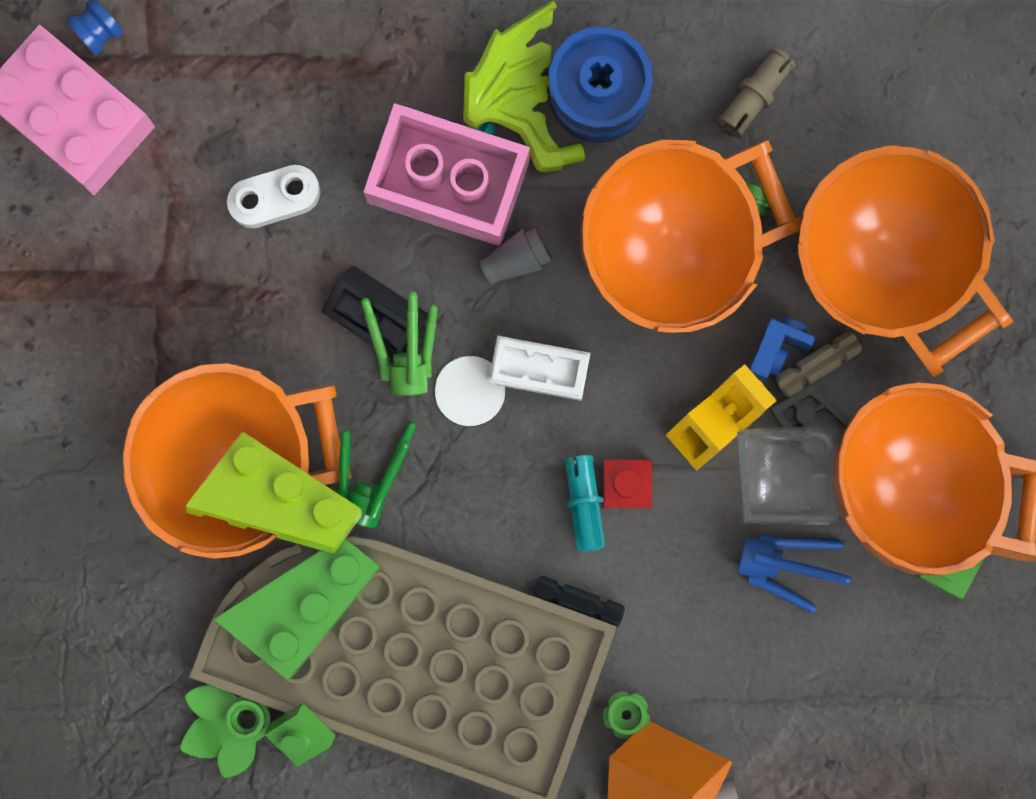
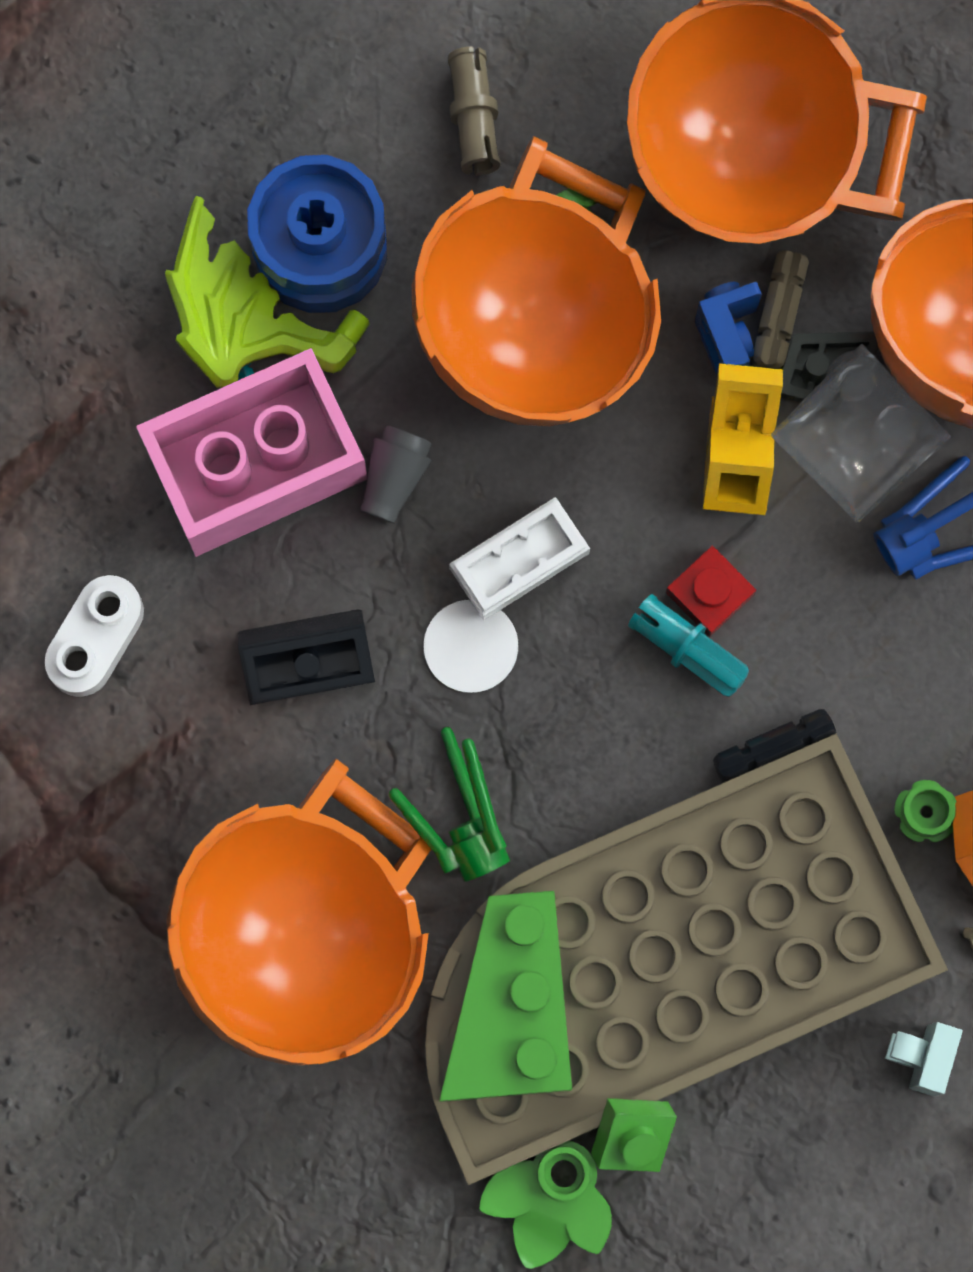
camera: 50 degrees left, 5 degrees down
(272, 495) = (382, 917): lime wing -> none
(411, 369) = (395, 677): bright green plant -> none

